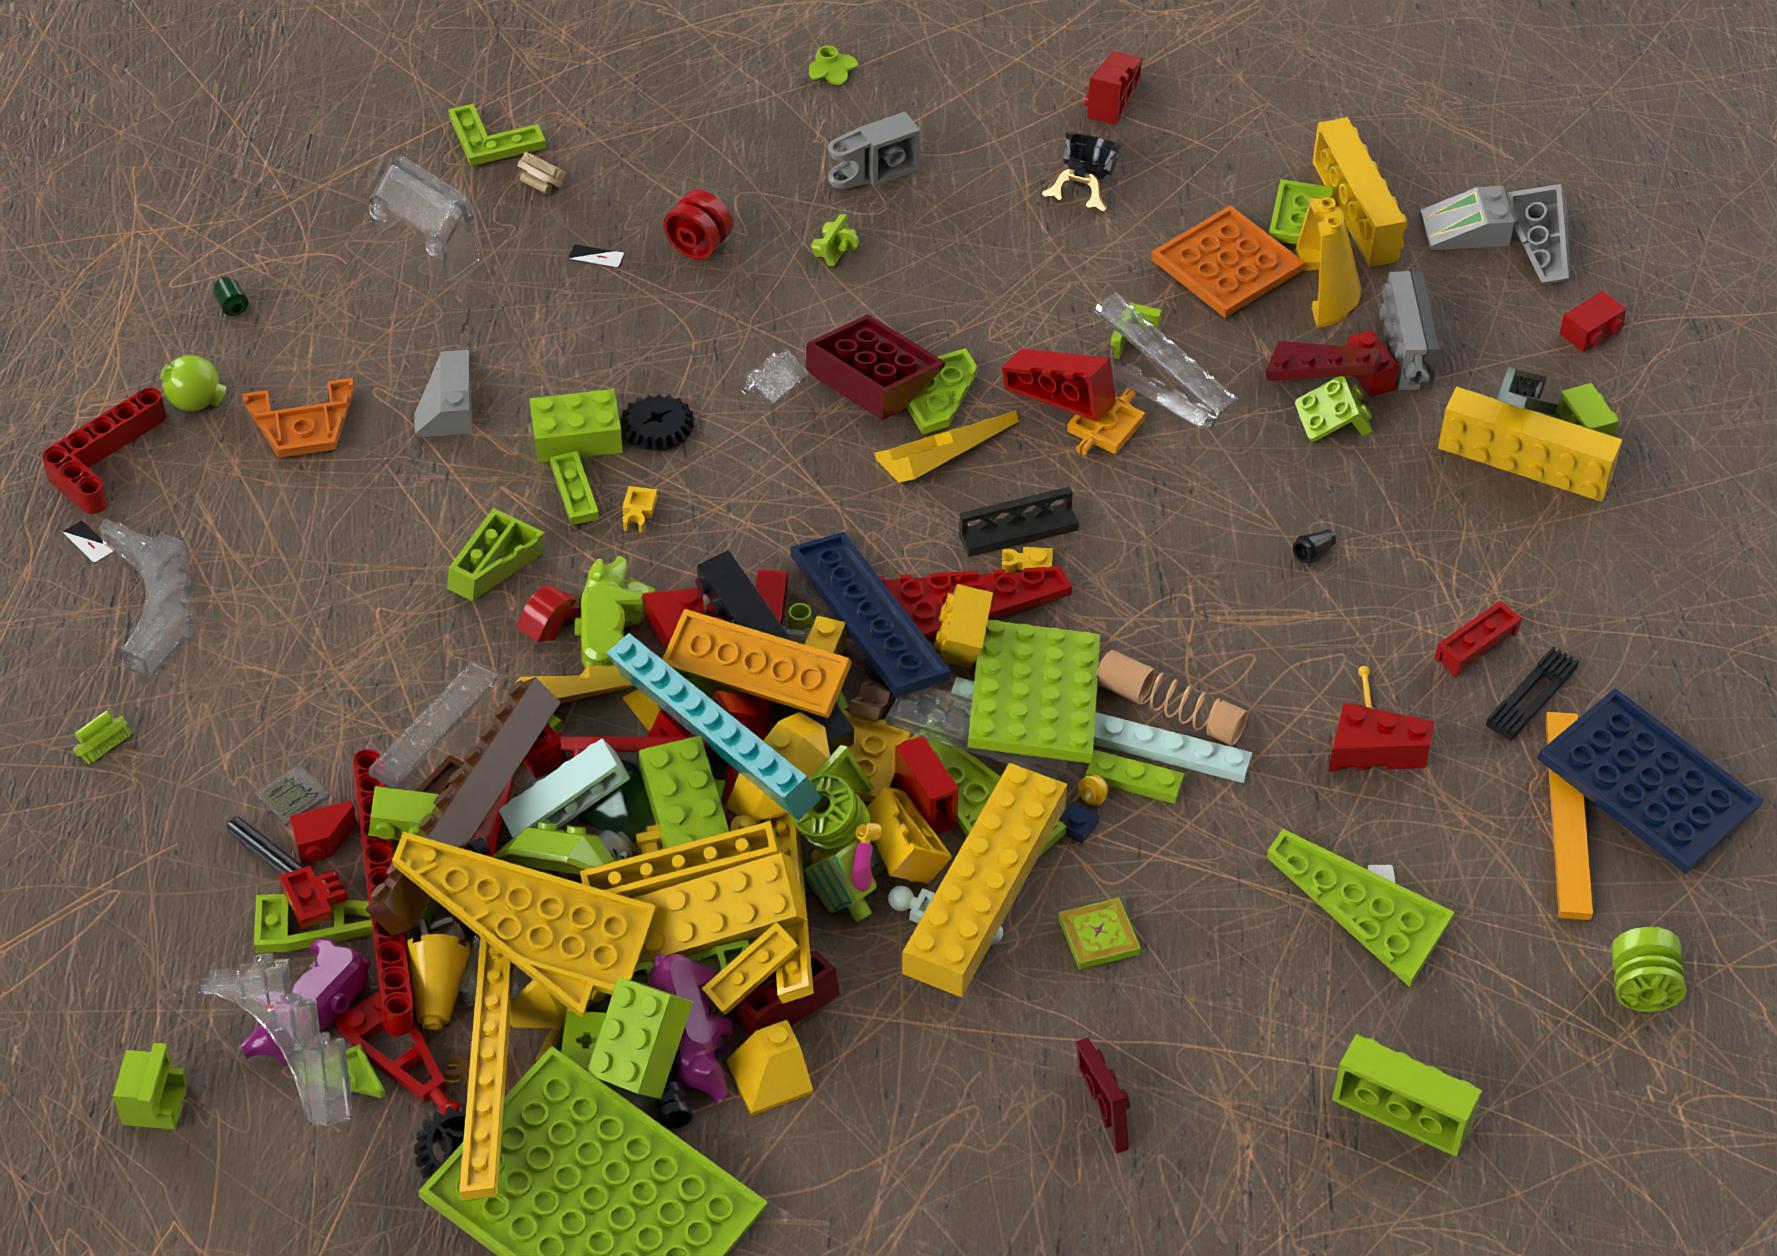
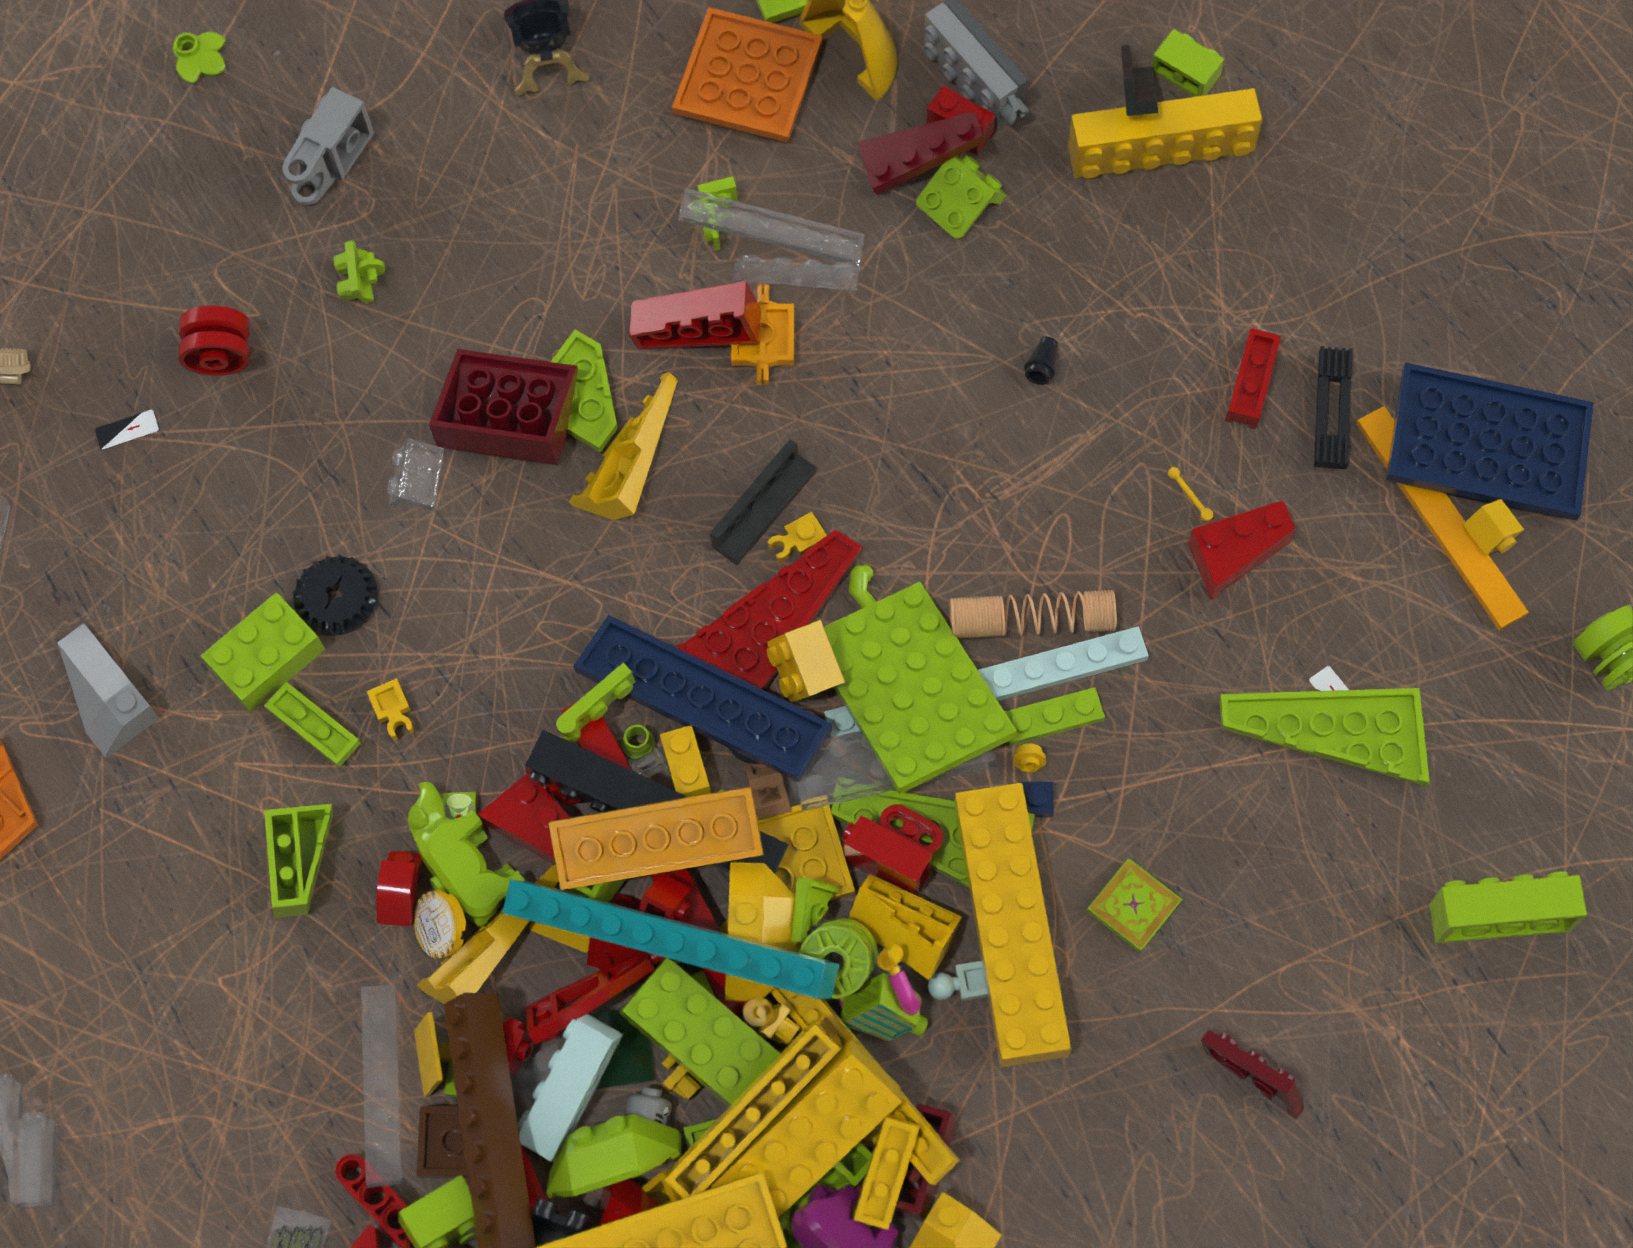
camera: 30 degrees left, 20 degrees up
(482, 722) = (430, 1054): none -> yellow piece
(560, 644) = (439, 923): none -> tile
(786, 567) = (595, 703): none -> lime plate
(963, 777) = (913, 826): none -> red plate
(1054, 608) = (858, 585): none -> lime arm
(1605, 837) = (1494, 527): none -> yellow brick

